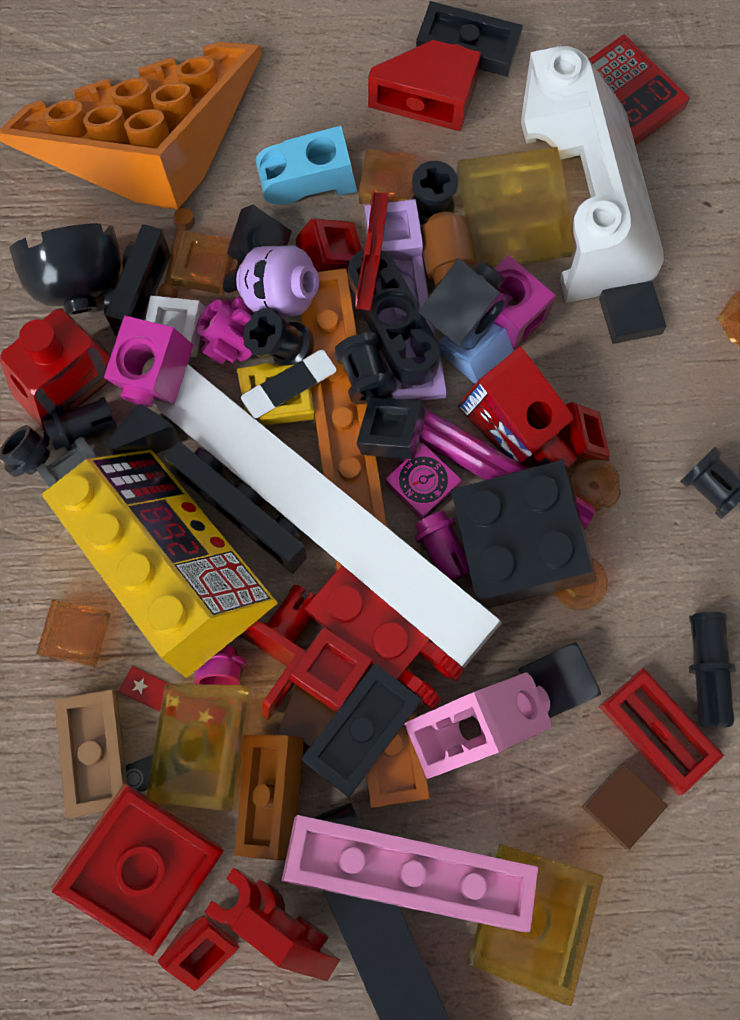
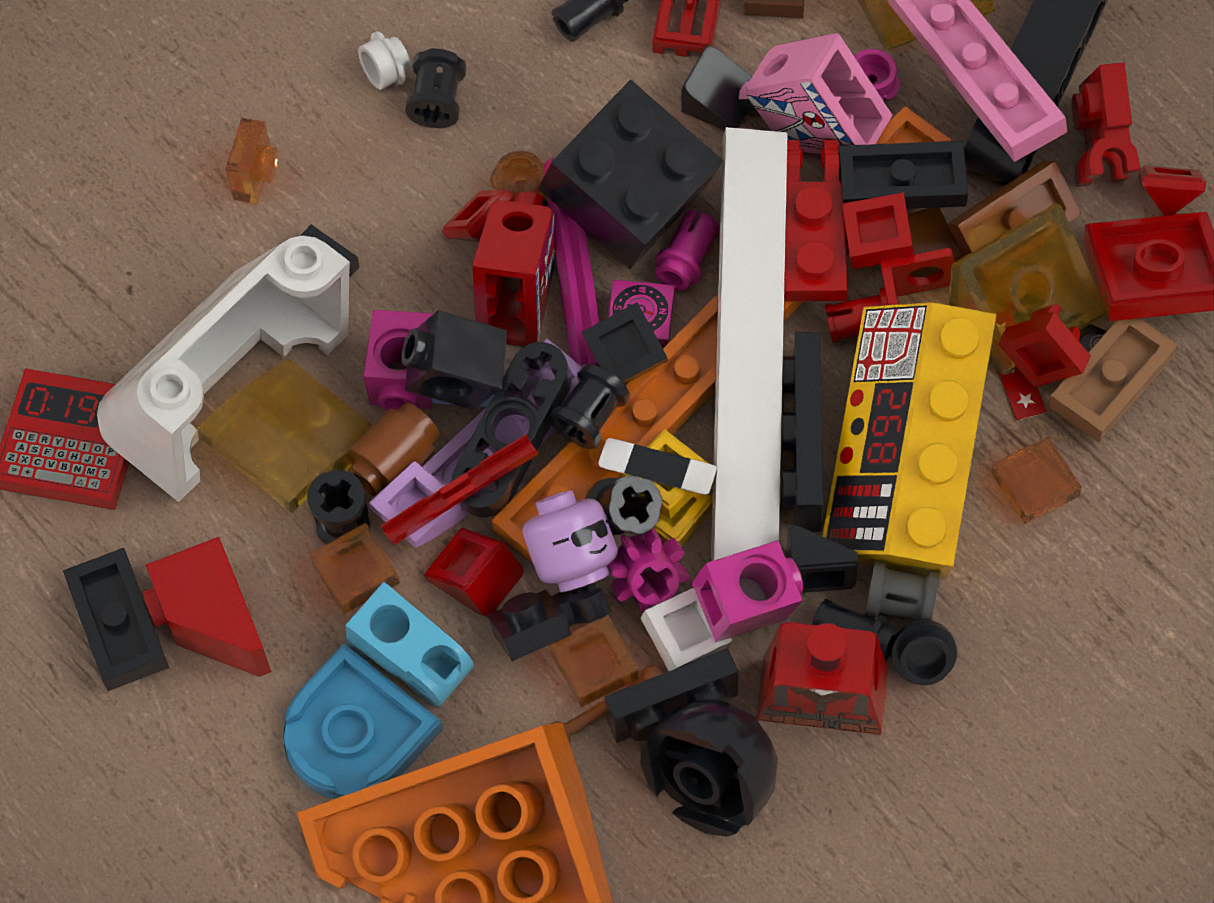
camera: 125 degrees left, 10 degrees down
(147, 720) = (1045, 347): none -> red tile
(284, 107) = (353, 727): none -> dark azure tile
(496, 807) = (881, 67): none -> dark pink plate

